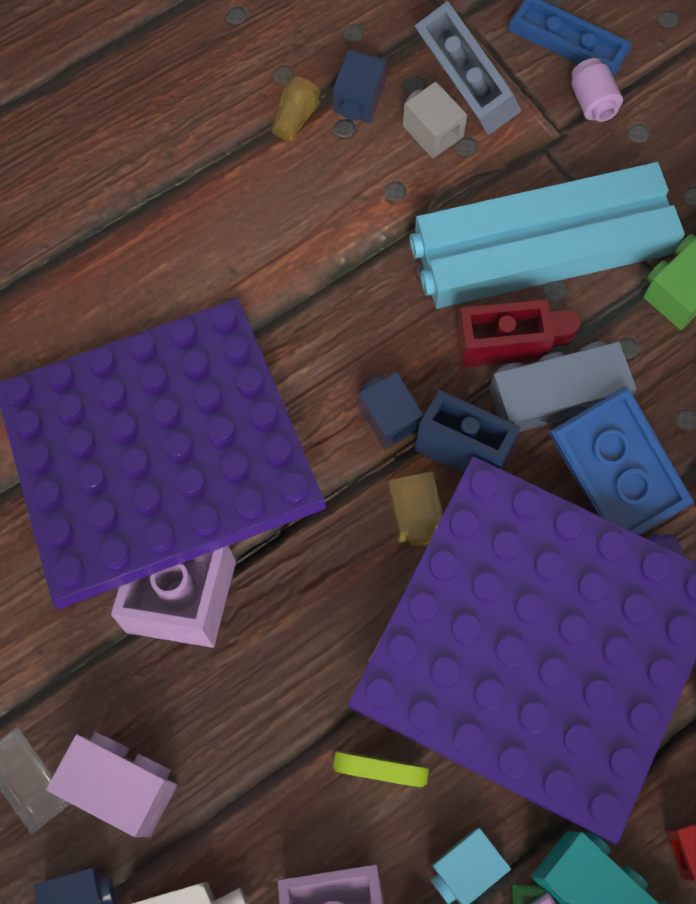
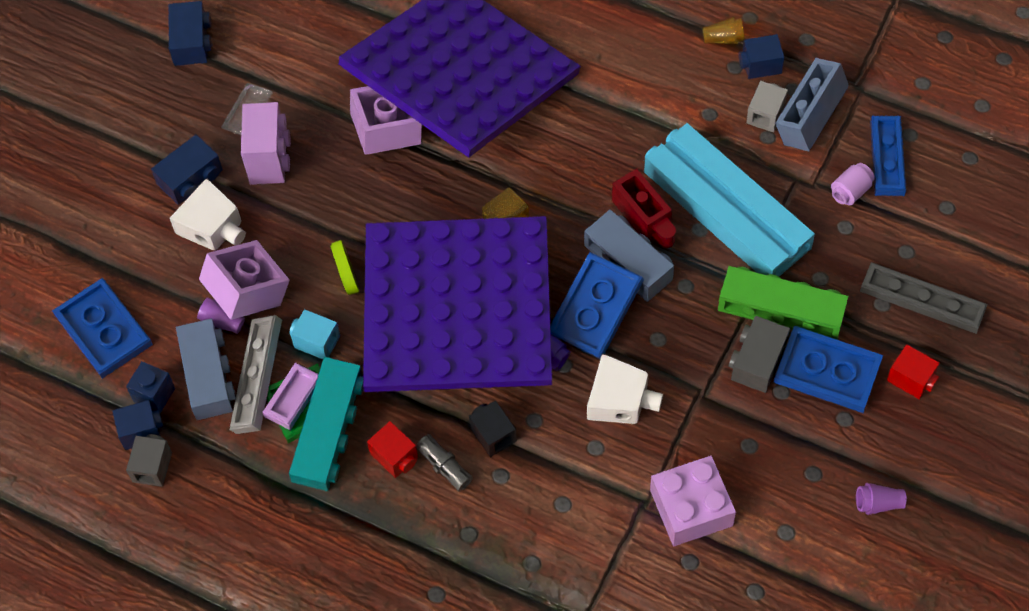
camera: 65 degrees right, 10 degrees down
(389, 409) = (557, 173): dark blue brick -> none
(458, 431) = (562, 212): dark blue brick -> none

